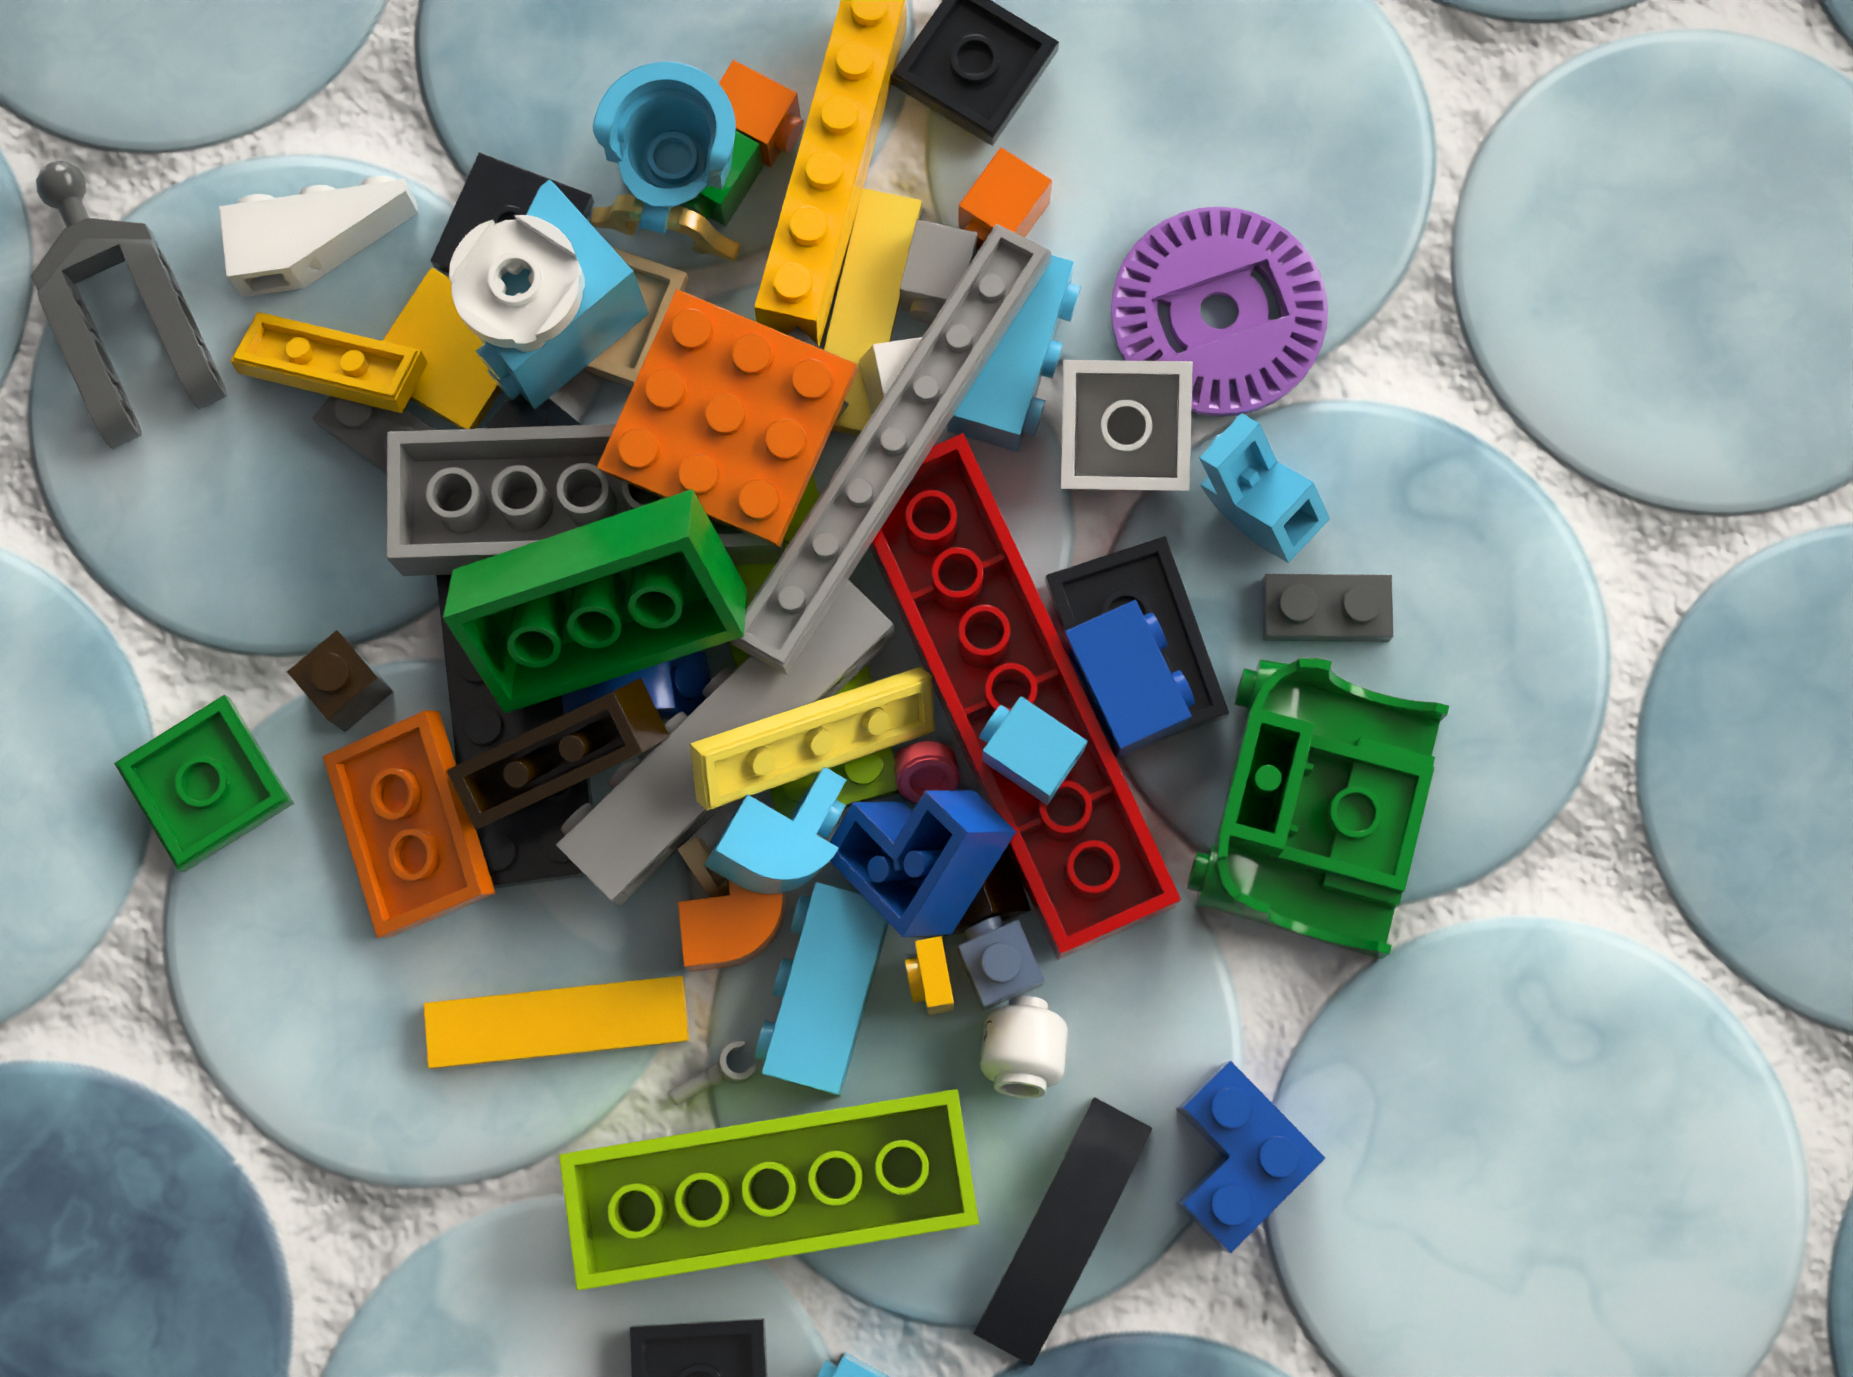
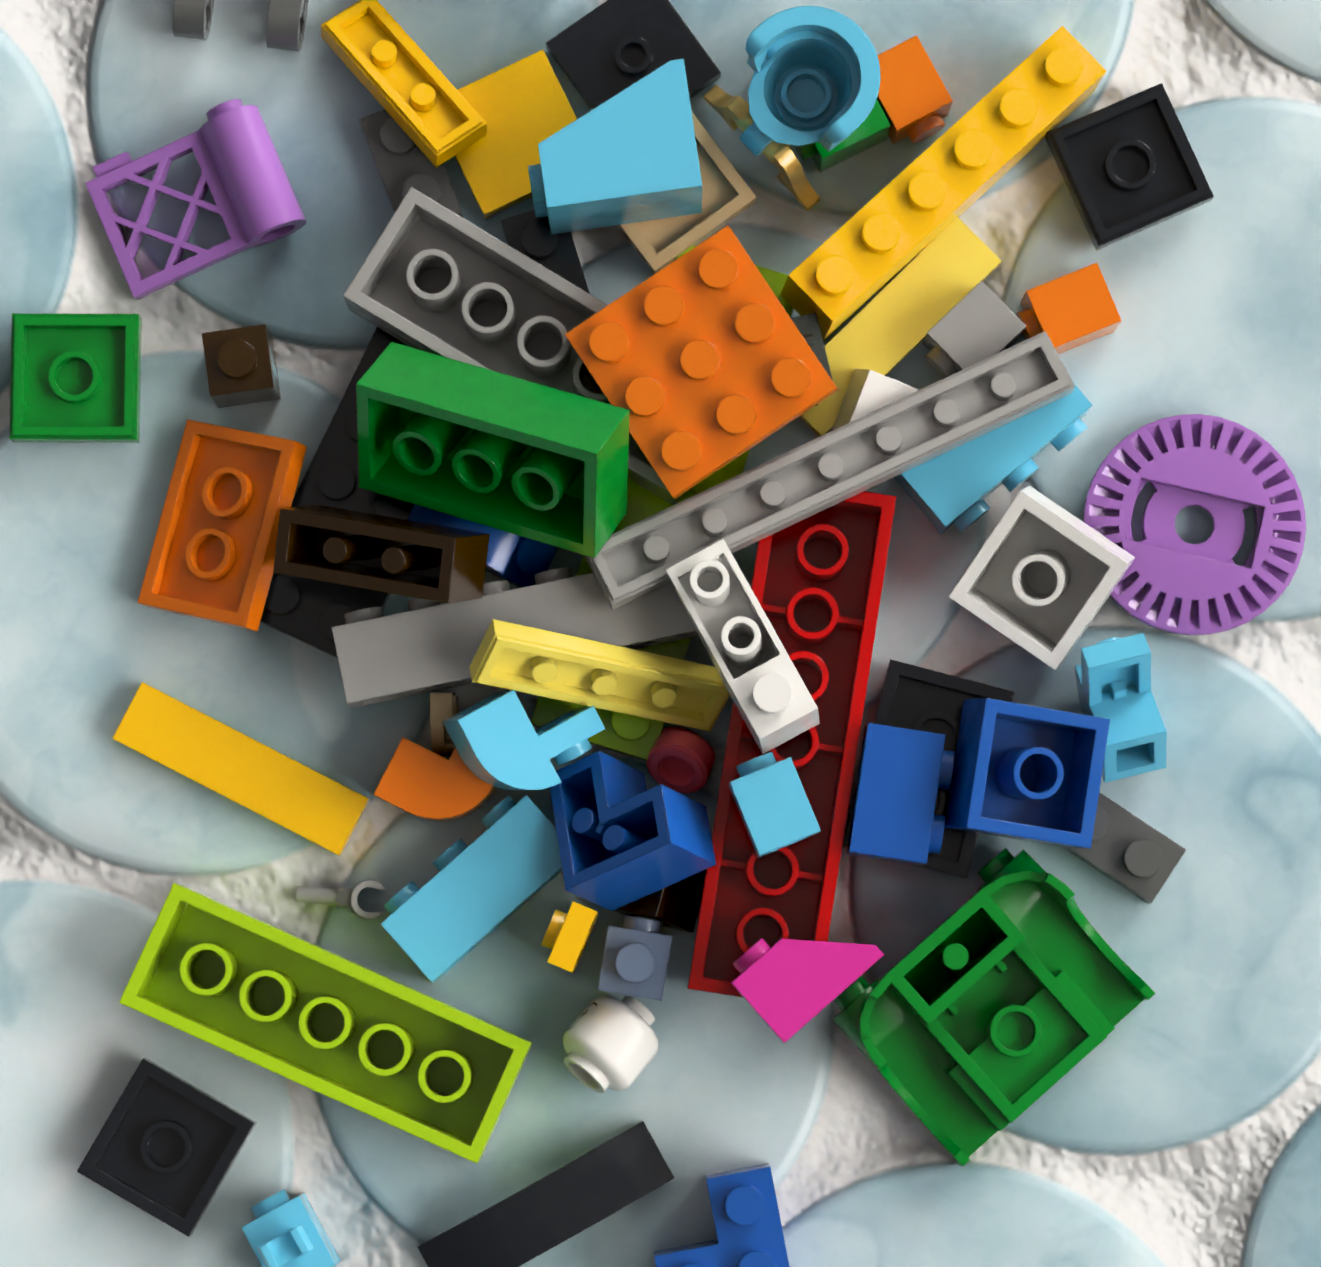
camera: 30 degrees right, 5 degrees up
(244, 527) = (242, 177): none -> medium lavender piece
(525, 318) = (613, 101): white plate -> none
(921, 632) = (744, 646): none -> white slope
(1150, 881) = (798, 978): none -> dark pink slope
(1223, 589) = (1027, 773): none -> blue brick

